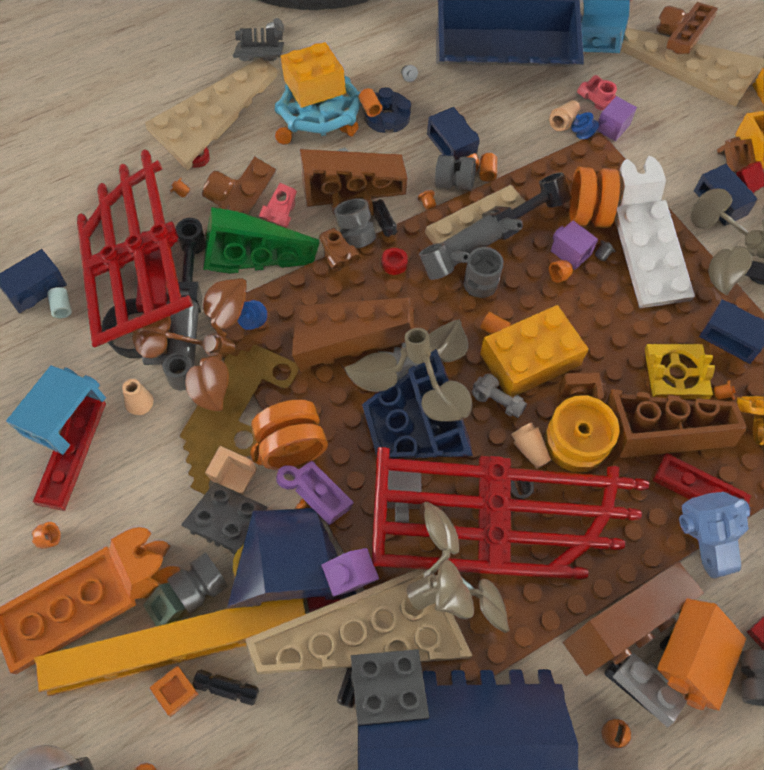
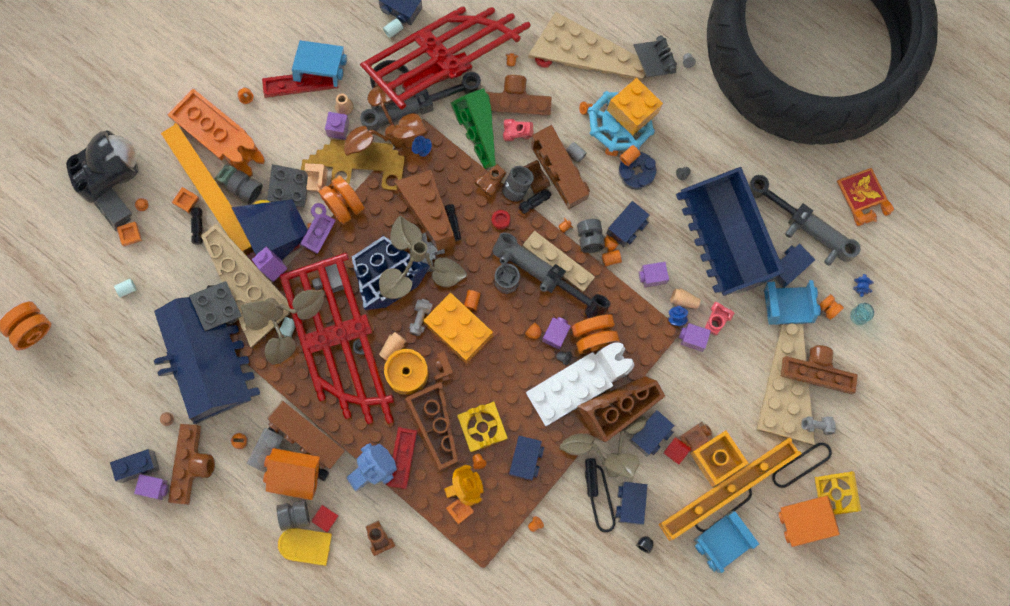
camera: 70 degrees right, 15 degrees up
(165, 416) = (337, 125): none -> medium lavender brick
(526, 131) = (654, 274): none -> medium lavender brick
(694, 209) = (620, 407): none -> dark orange wedge
(748, 45) = (827, 425): none -> light grey bar

